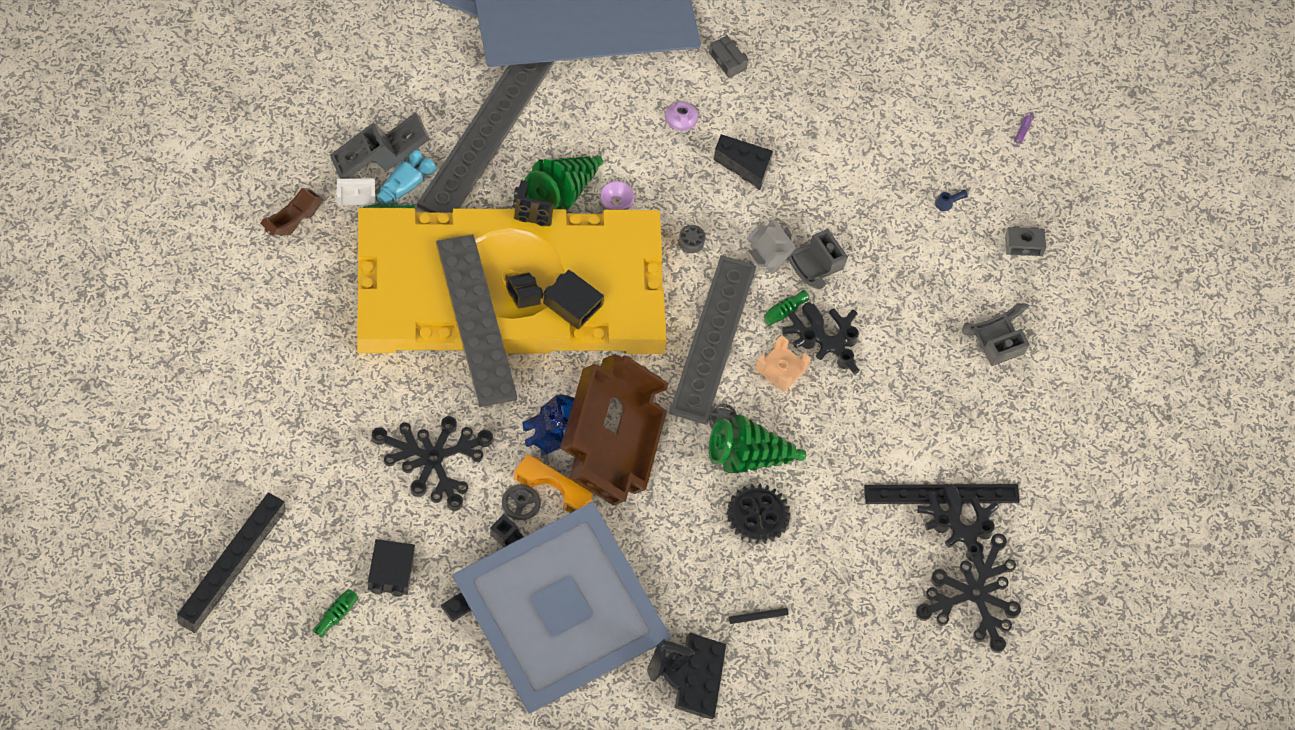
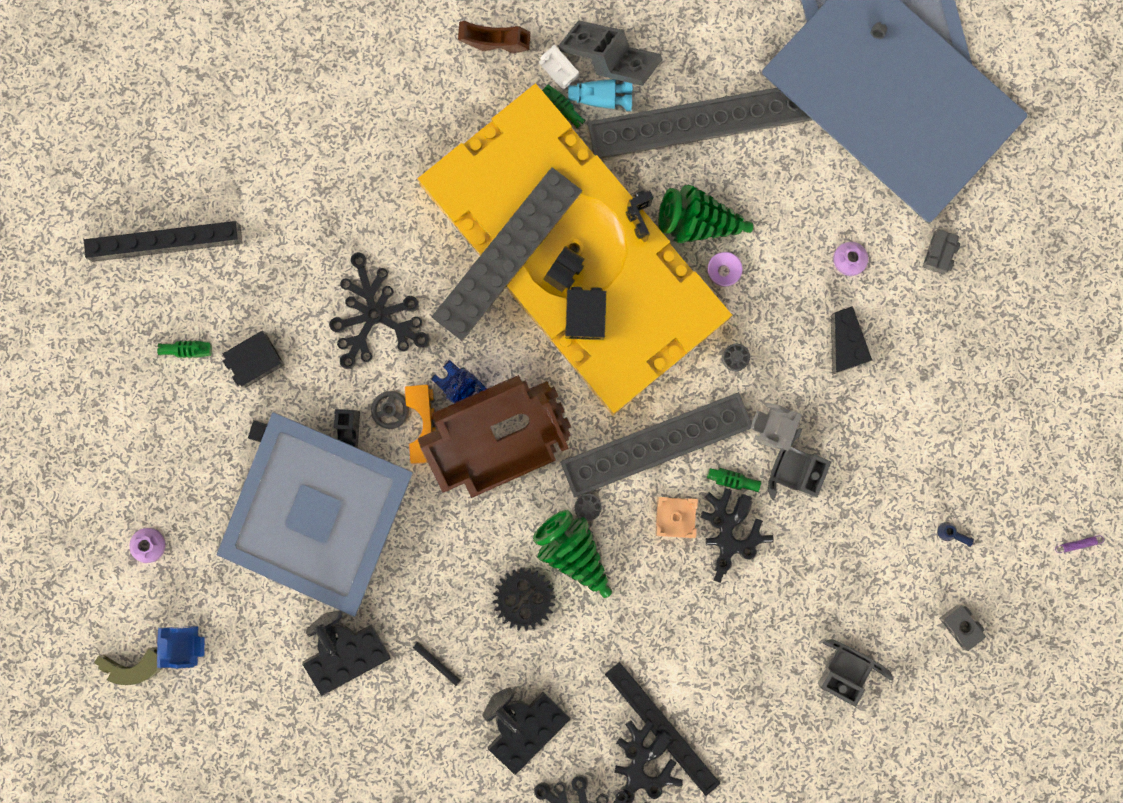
camera: 60 degrees right, 25 degrees up
(860, 583) = (525, 730): none -> black plate

